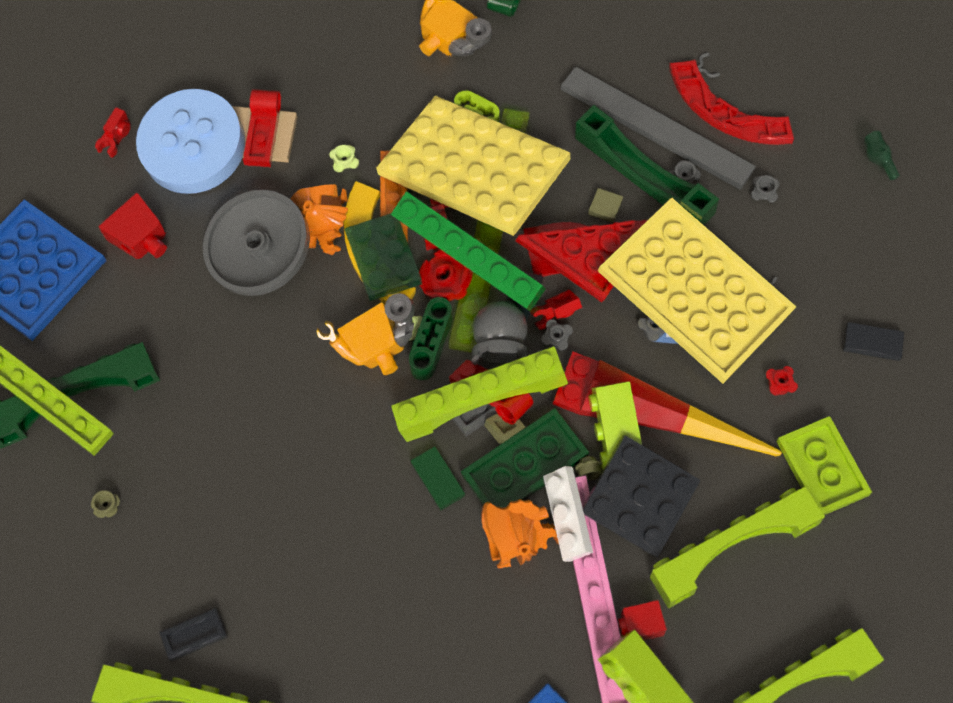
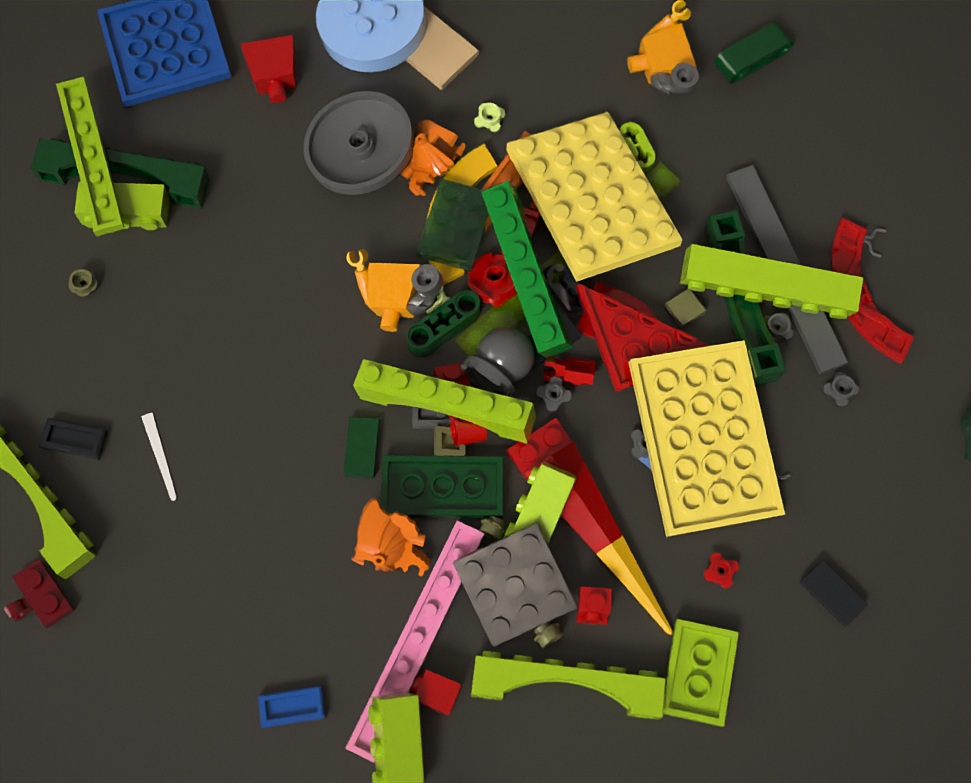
camera: 30 degrees right, 5 degrees up
(109, 405) = (139, 205): none -> lime brick
(262, 128) = (438, 45): red plate -> none
(263, 589) = (154, 438): none -> white sticker
(505, 247) = (559, 292): none -> black beam
(568, 514) = (441, 556): white plate -> none
(657, 141) = (771, 281): none -> lime brick
(691, 518) = (547, 634): none -> olive plate
(710, 470) = (593, 605): none -> red brick

